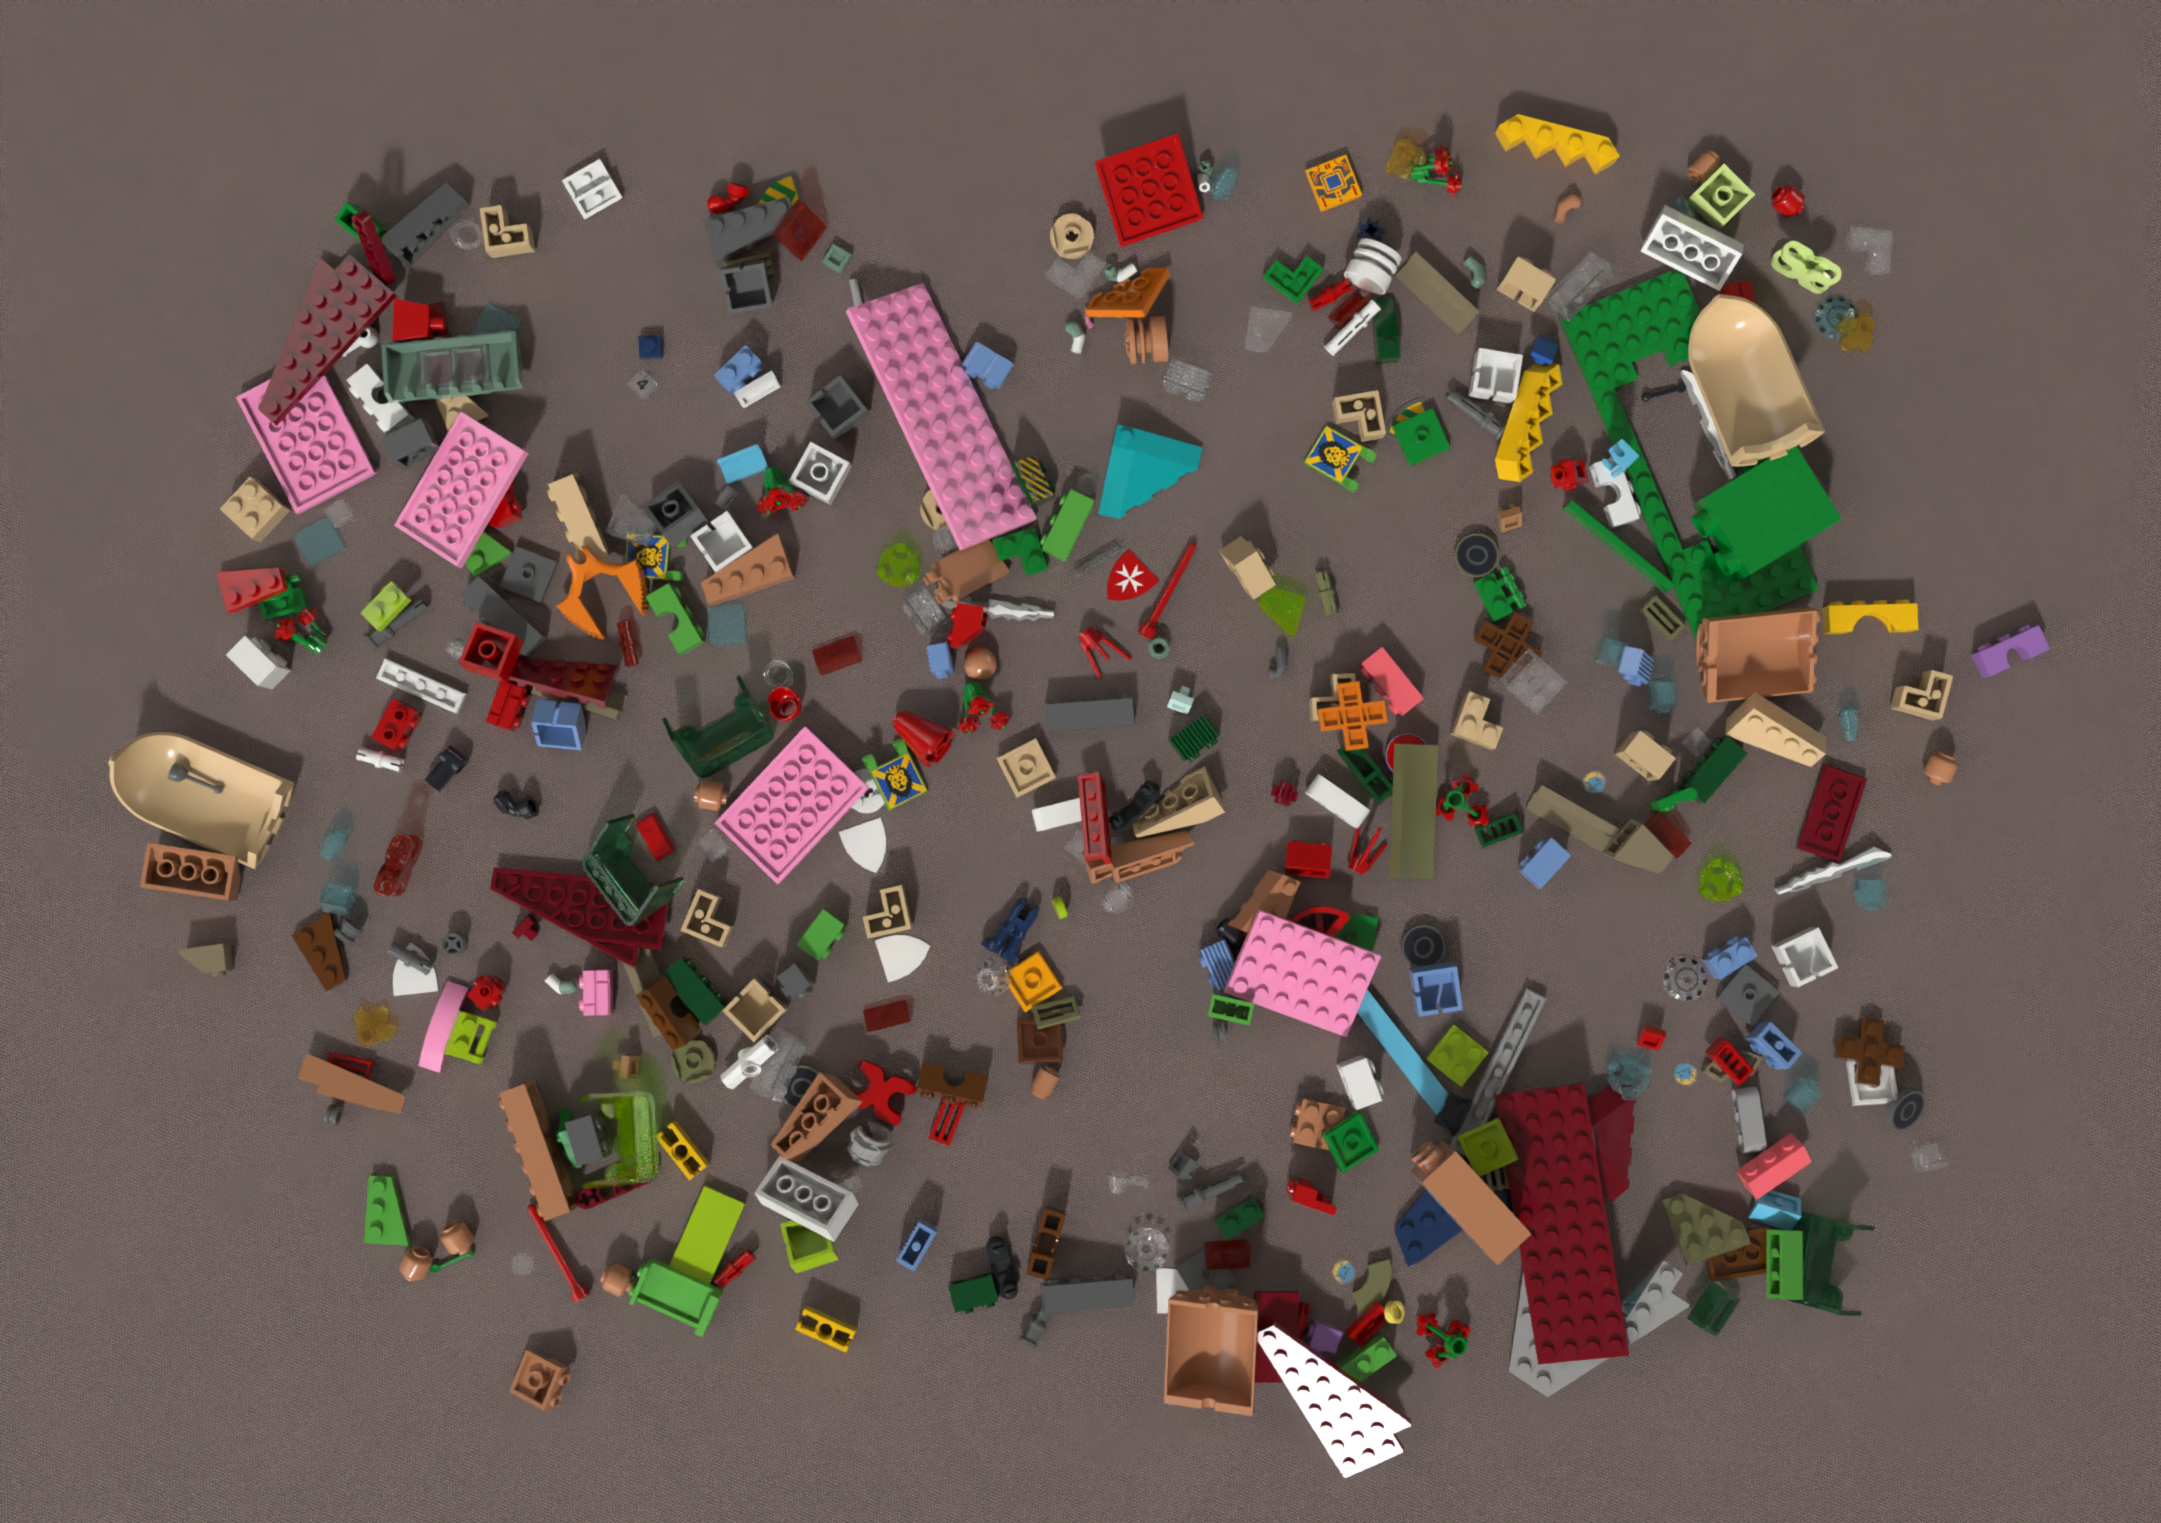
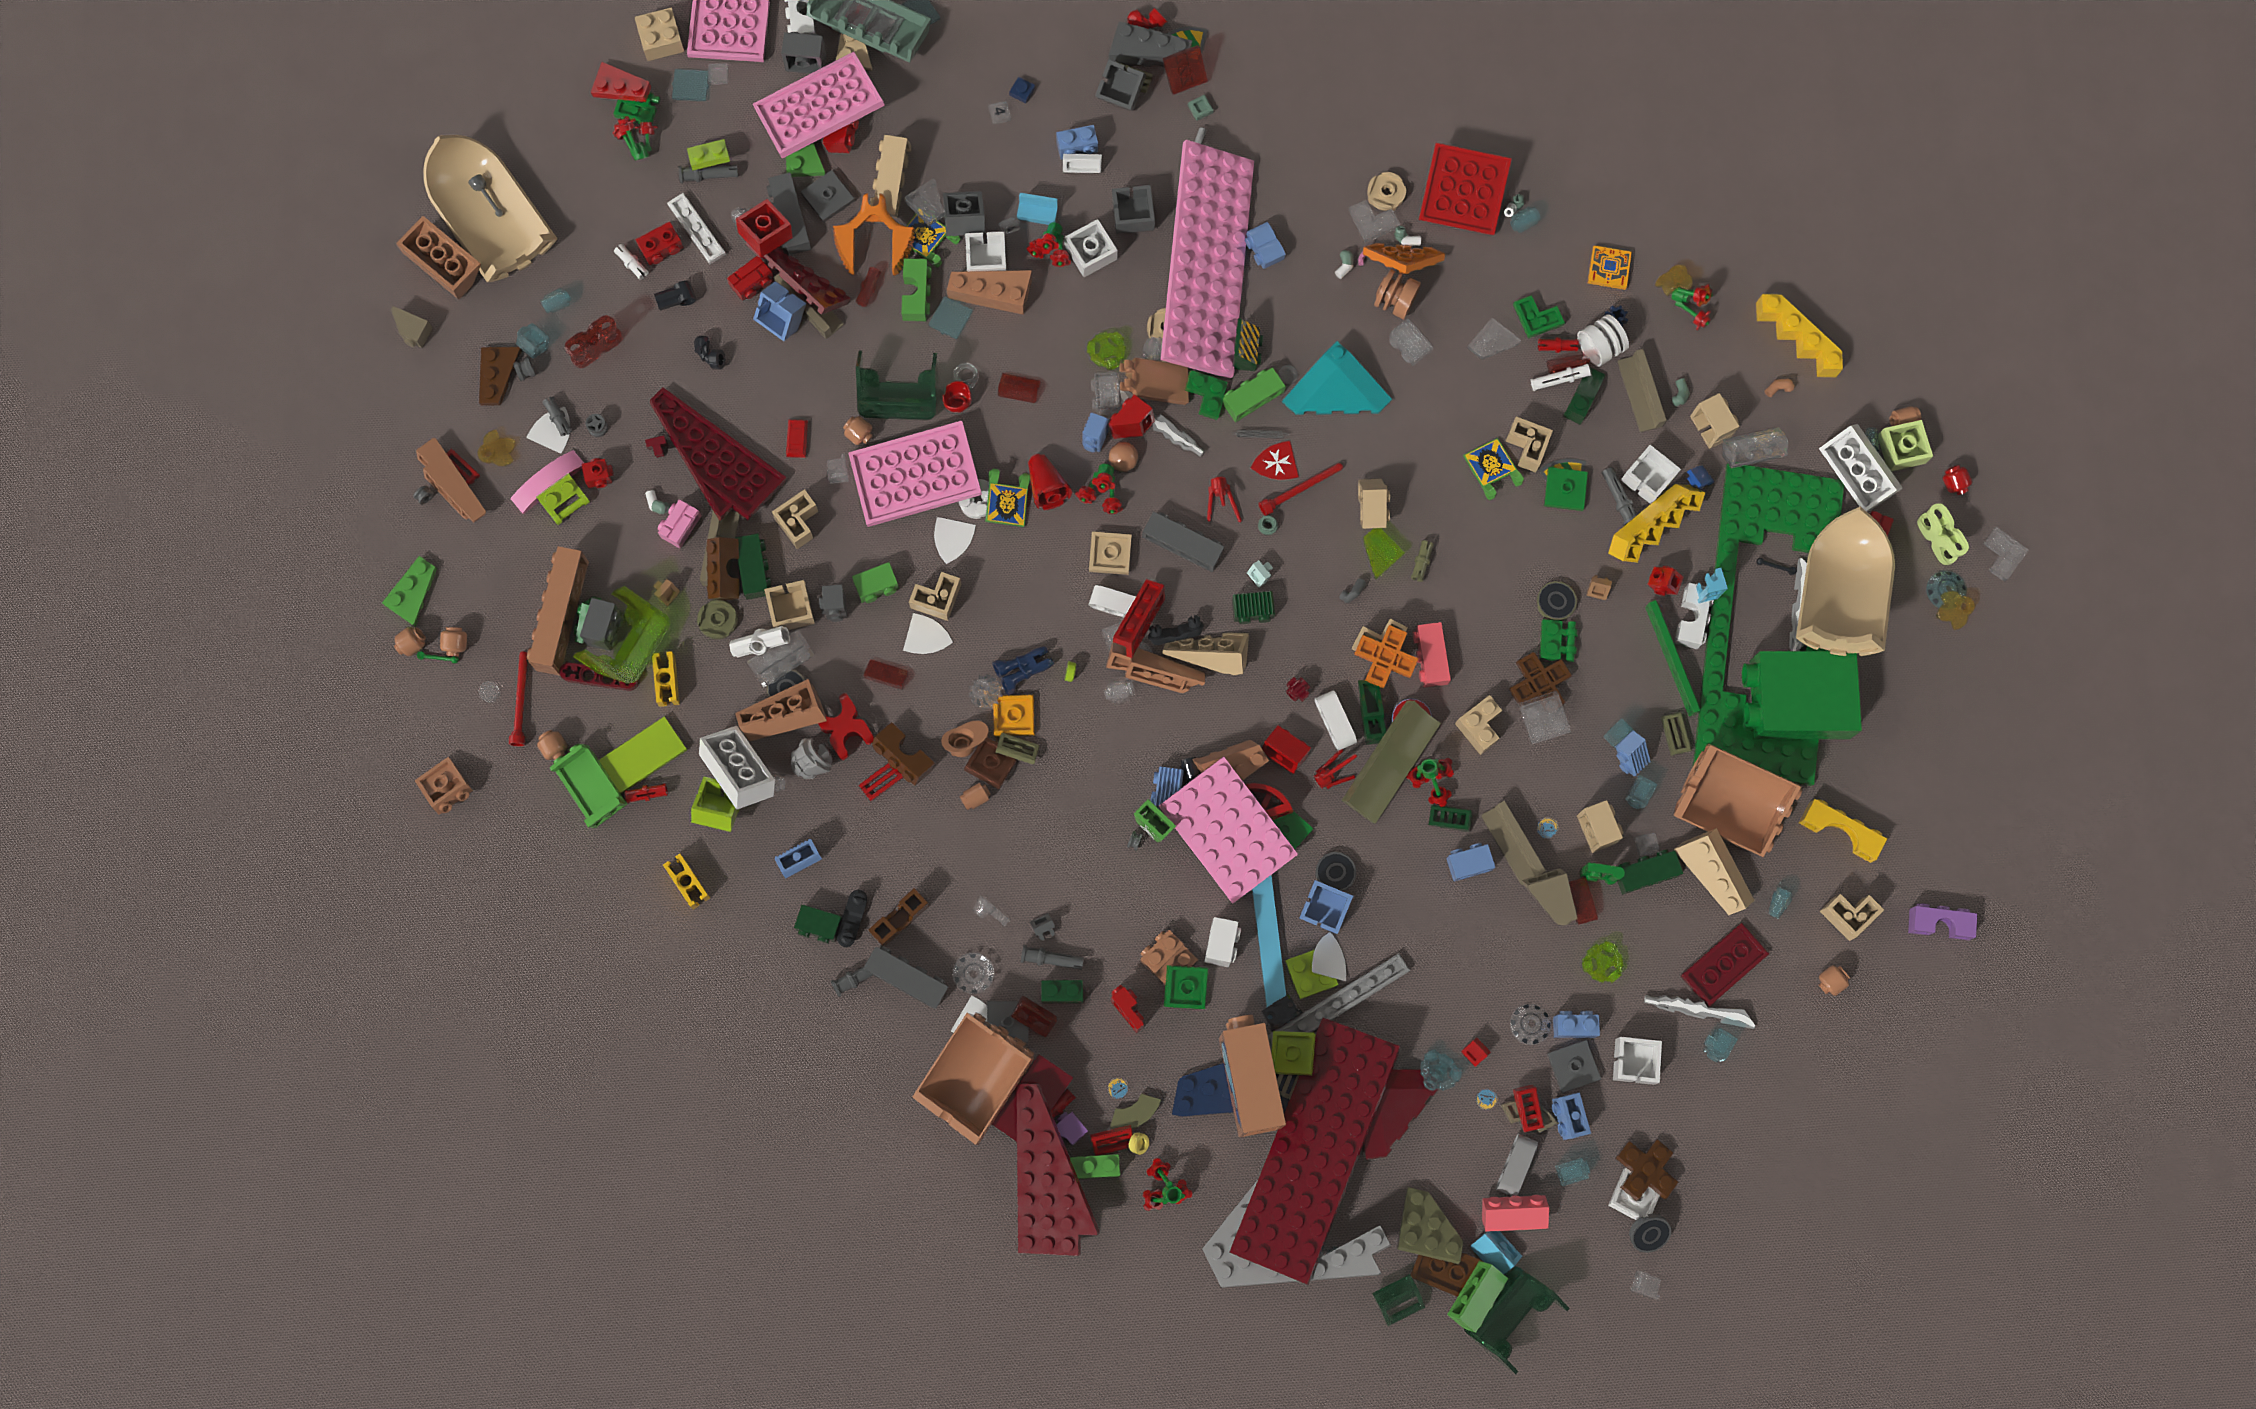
camera: 30 degrees right, 10 degrees down
(258, 662) = (590, 139): white piece -> none
(620, 879) = (750, 446): clear green windscreen -> none
(1001, 1034) = (963, 739): none -> nougat piece
(1466, 1034) = (1329, 958): none -> white sticker

